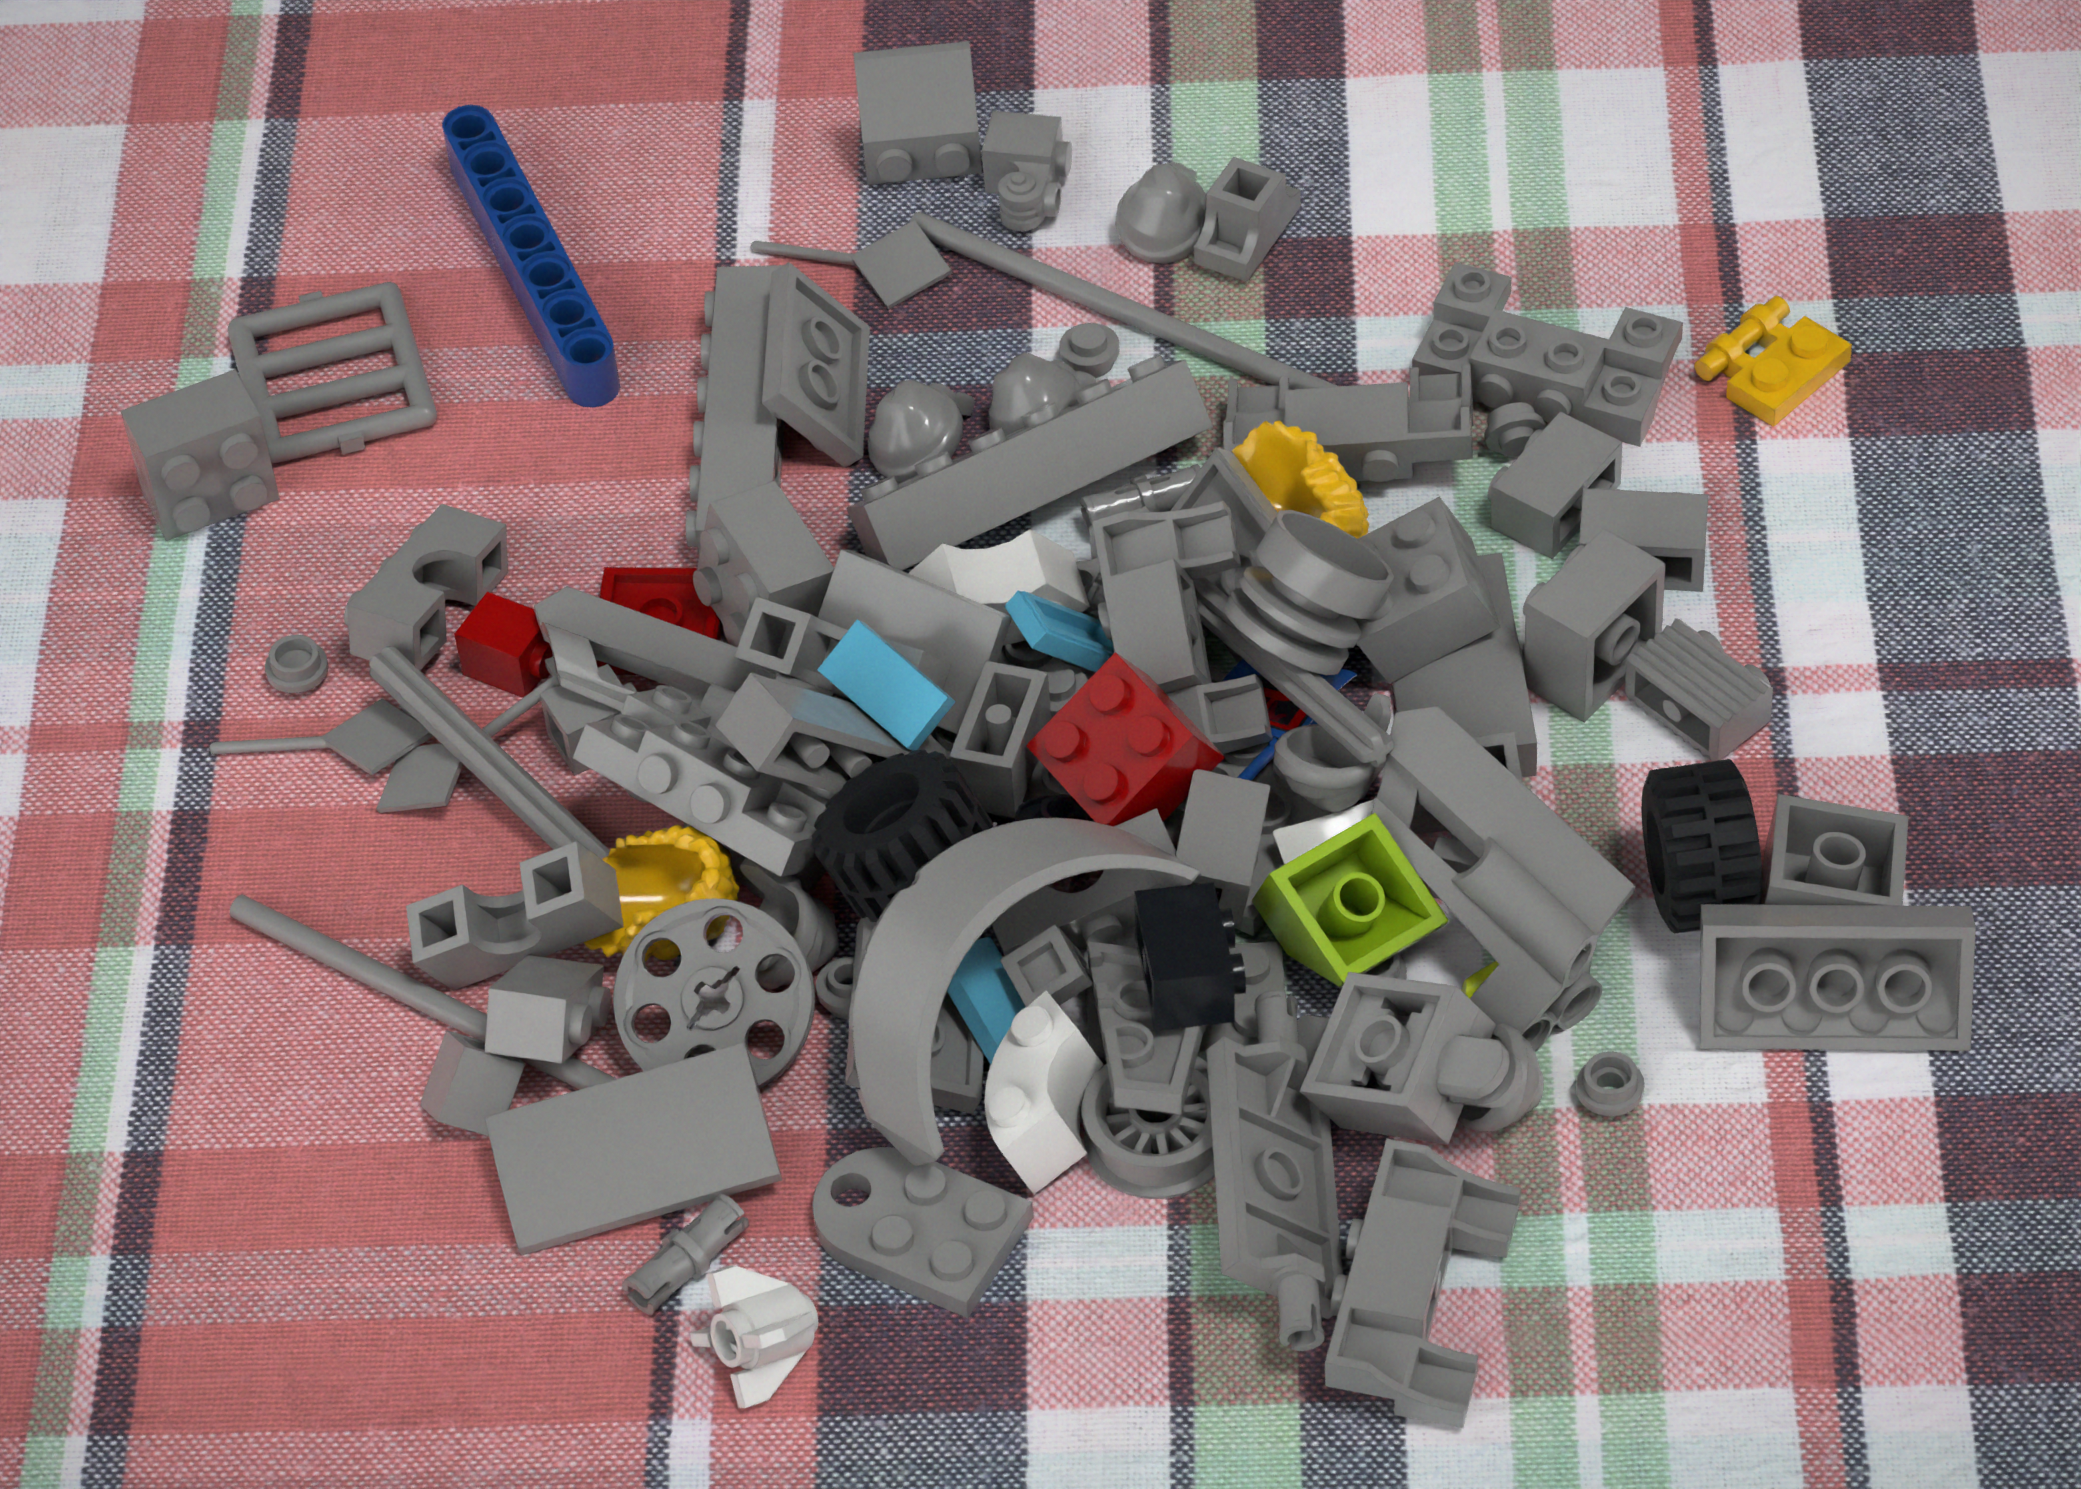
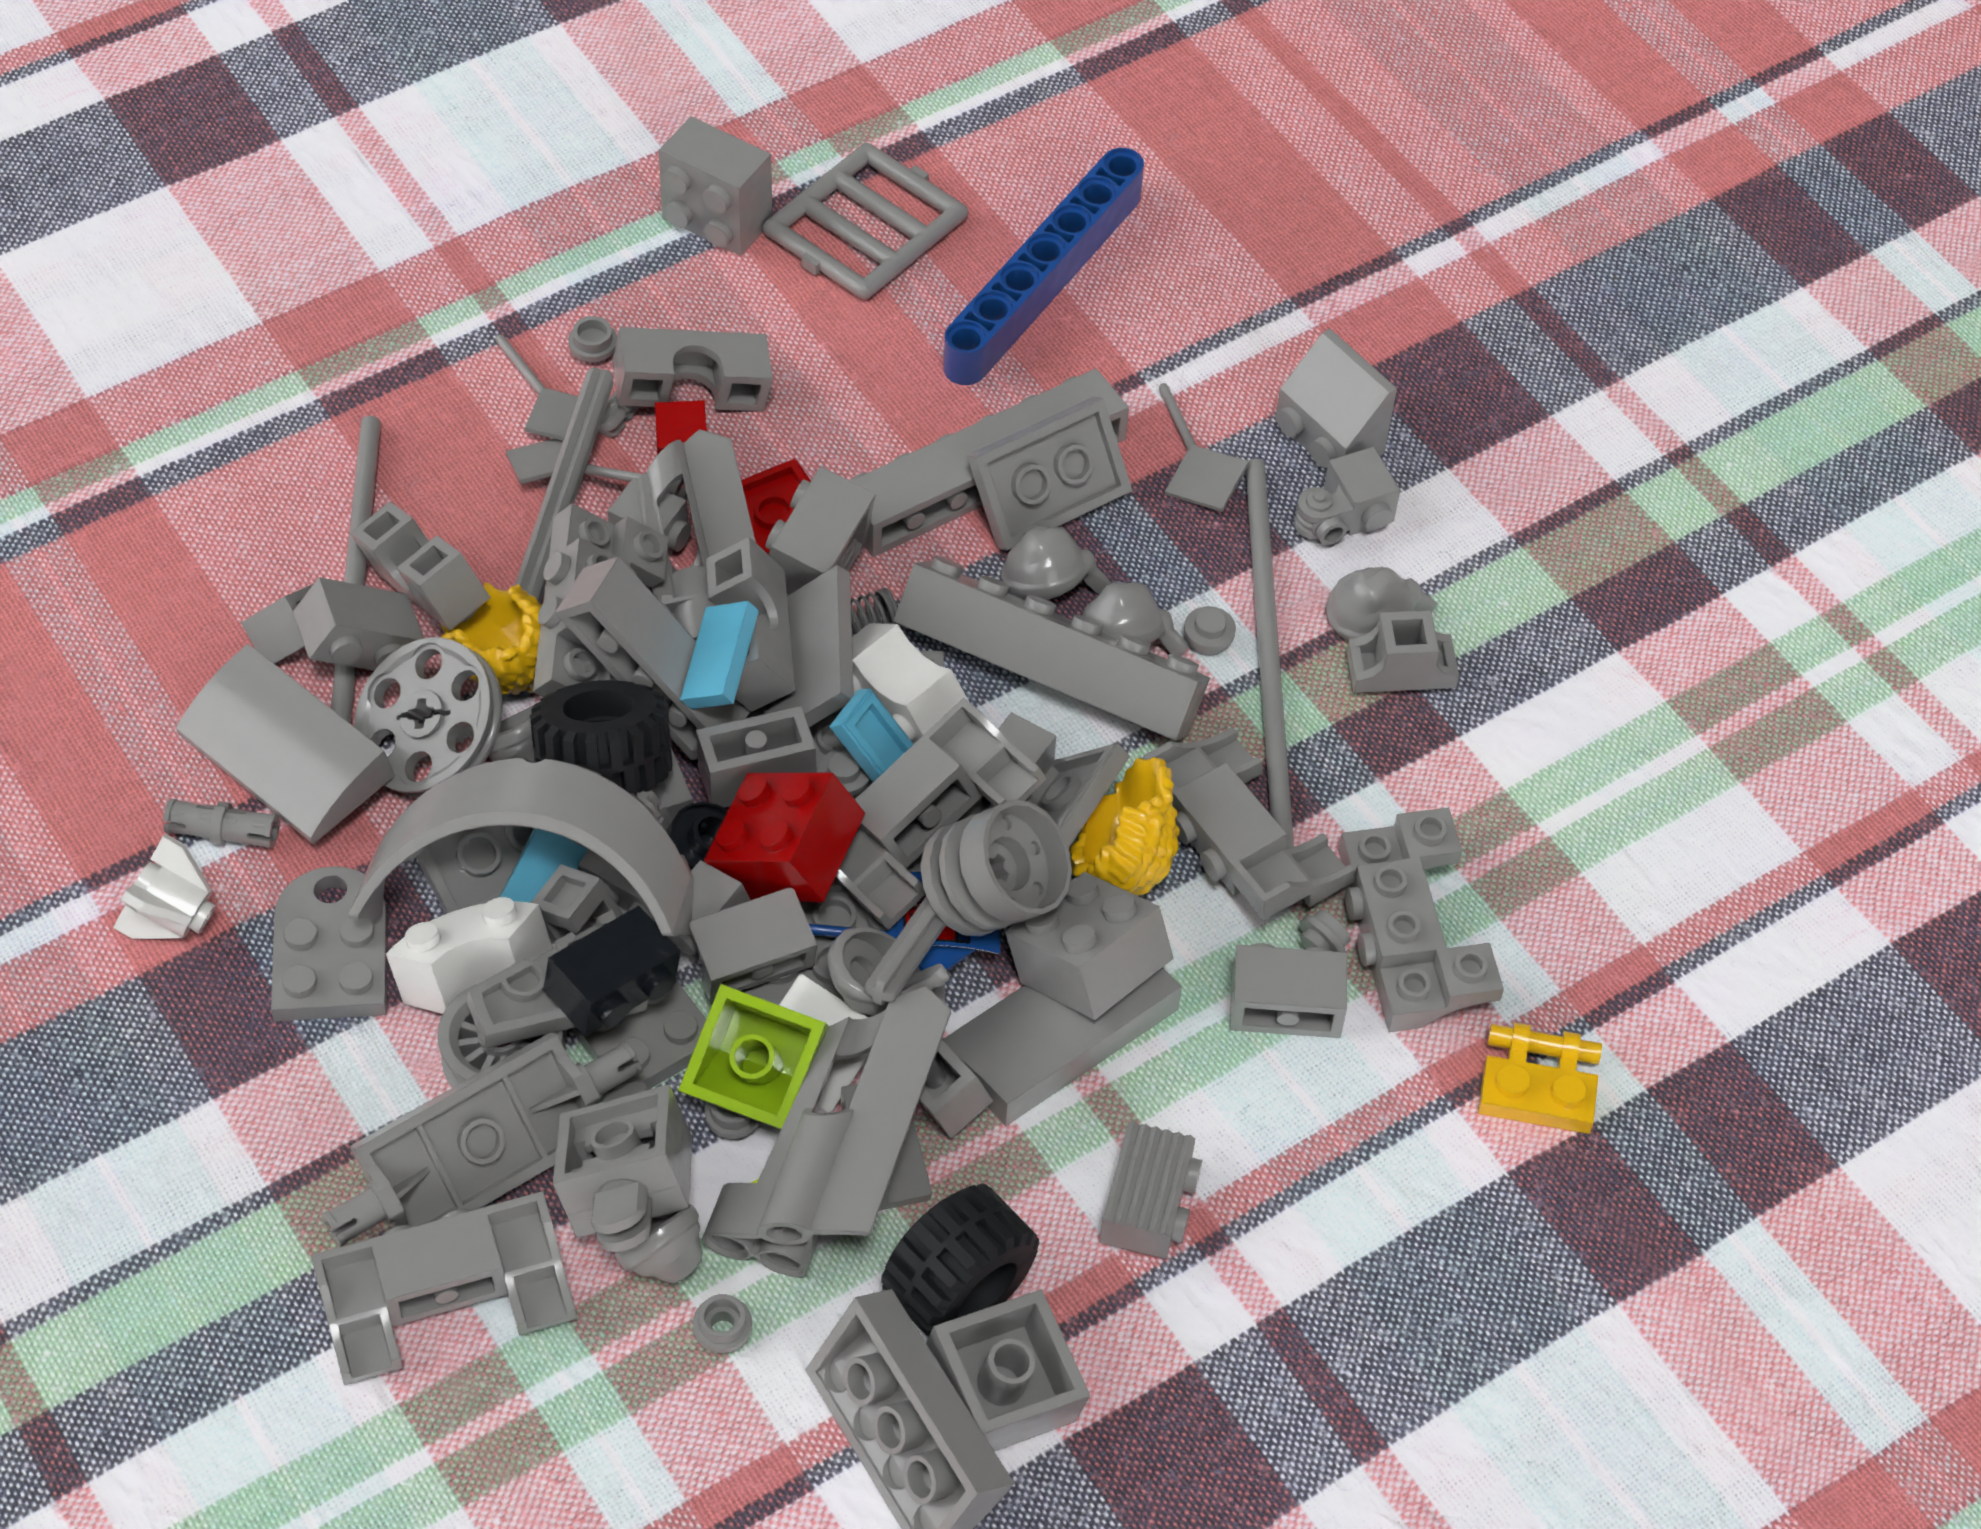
camera: 50 degrees right, 5 degrees up
(1155, 493) = (1076, 731): light grey pin -> none
(1590, 622) = (1143, 1077): light grey brick -> none
(1659, 523) = (1276, 1076): light grey brick -> none

